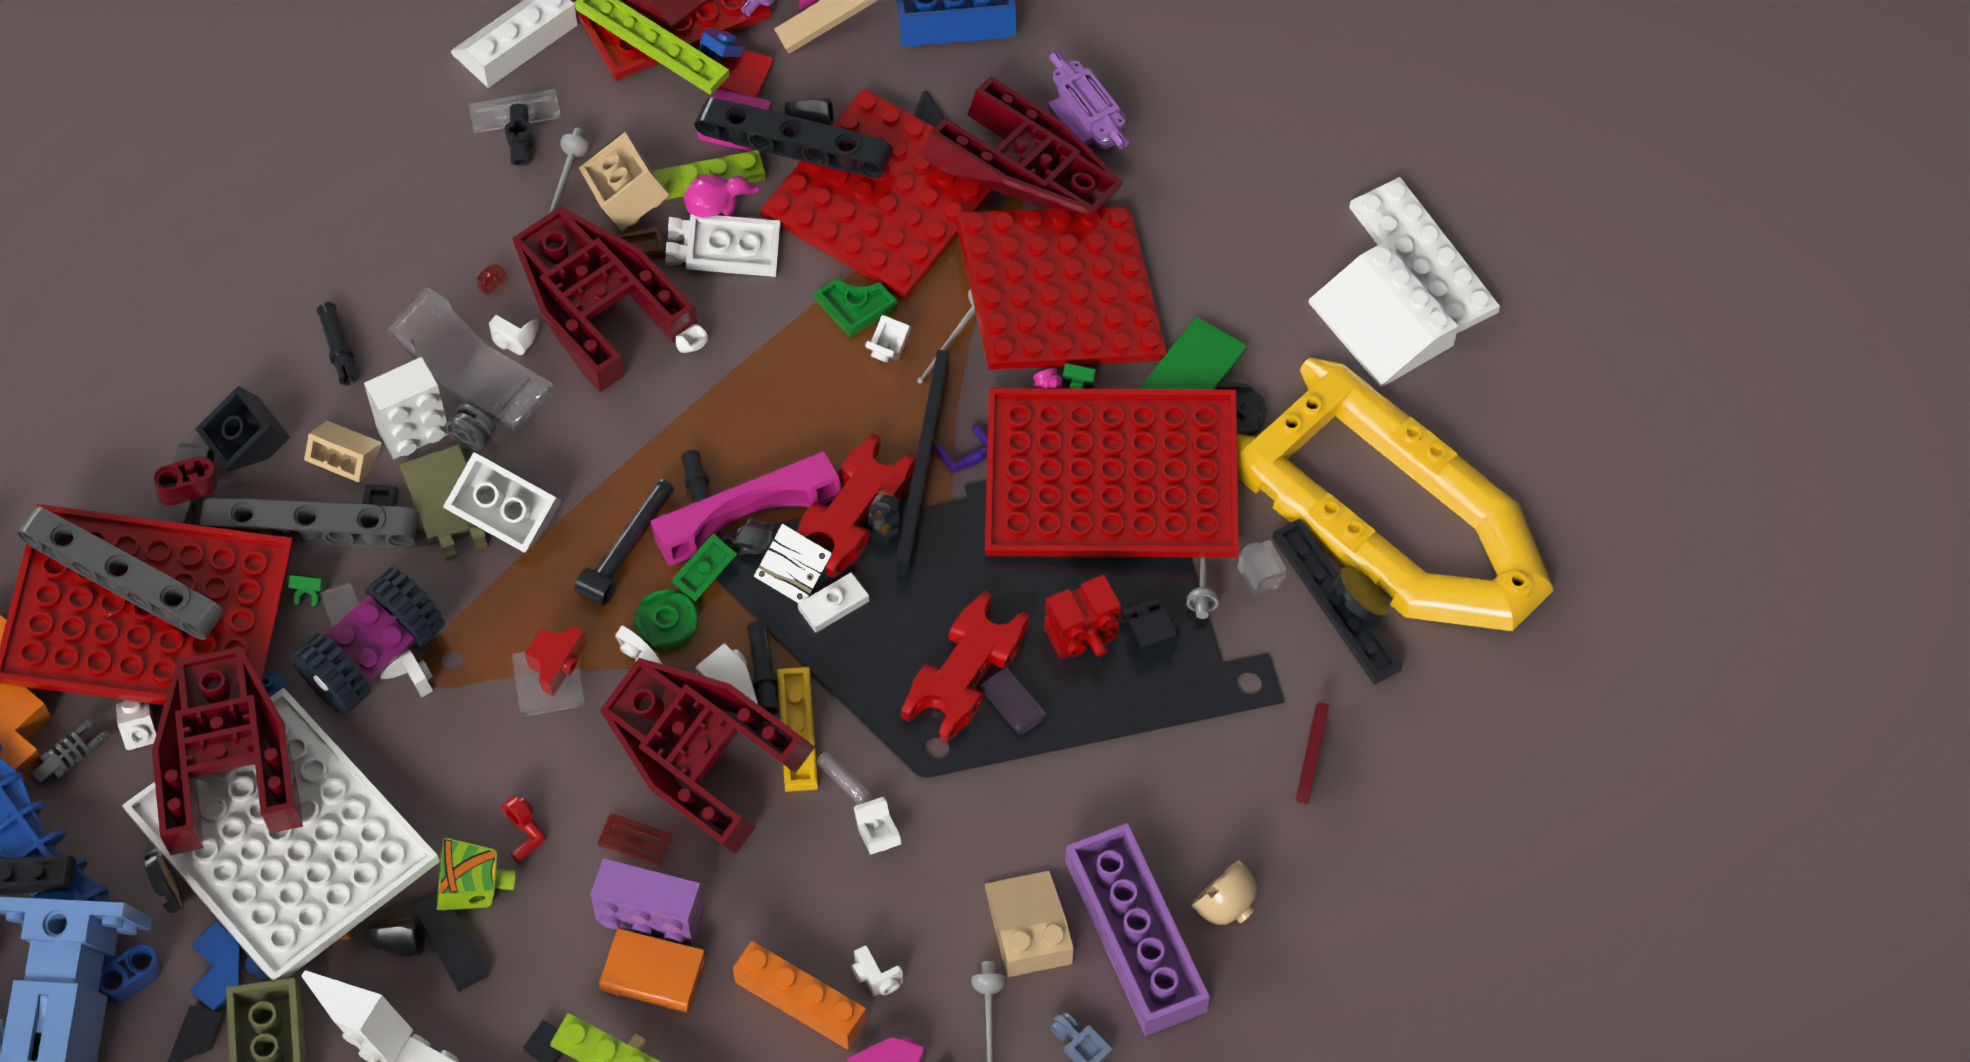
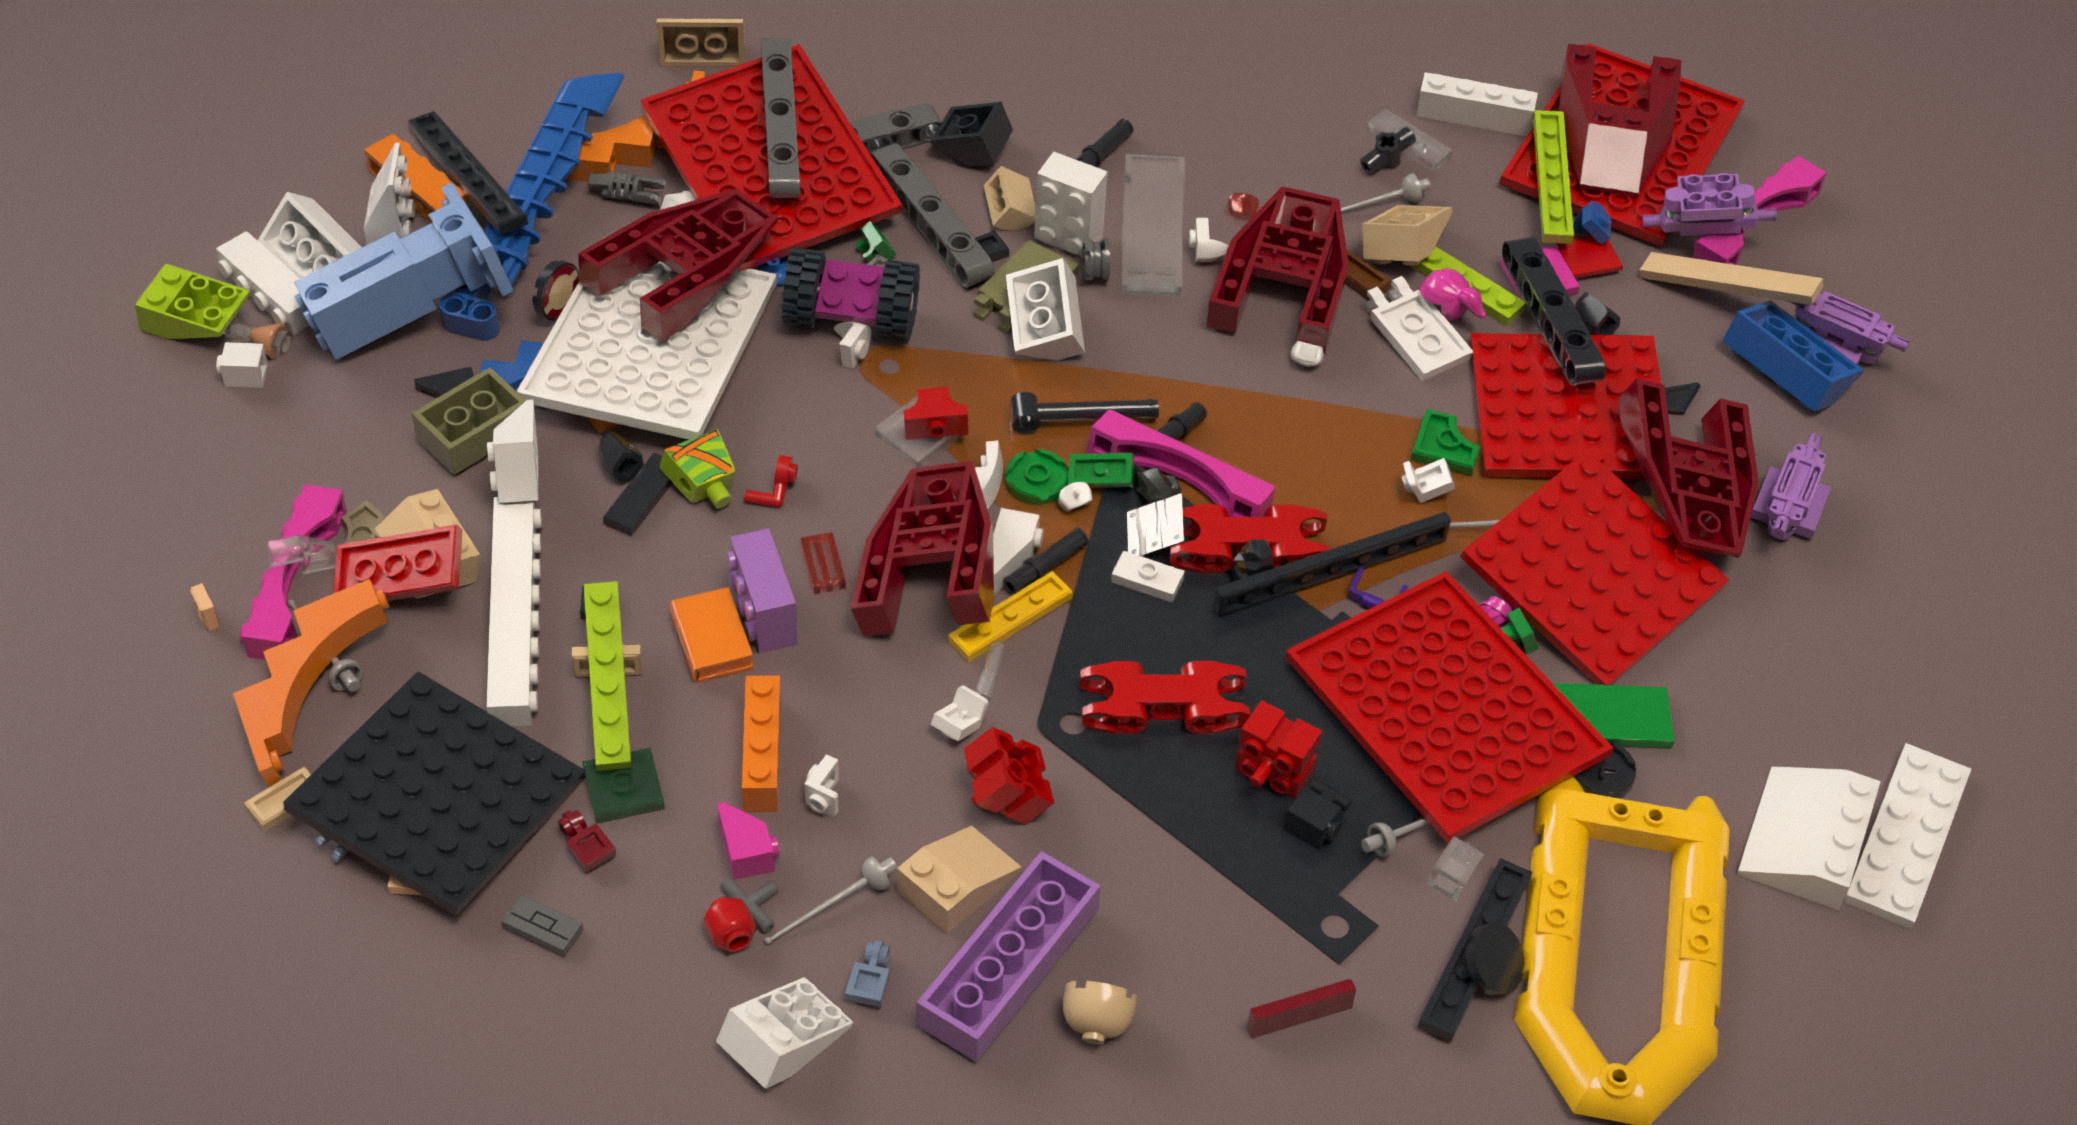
camera: 55 degrees right, 10 degrees down
(188, 470) = (894, 116): dark red beam -> none
(711, 605) = (1074, 496): none -> white piece
(972, 827) = (1008, 776): none -> red brick
(1013, 701) = (1162, 752): clear purple tile -> none

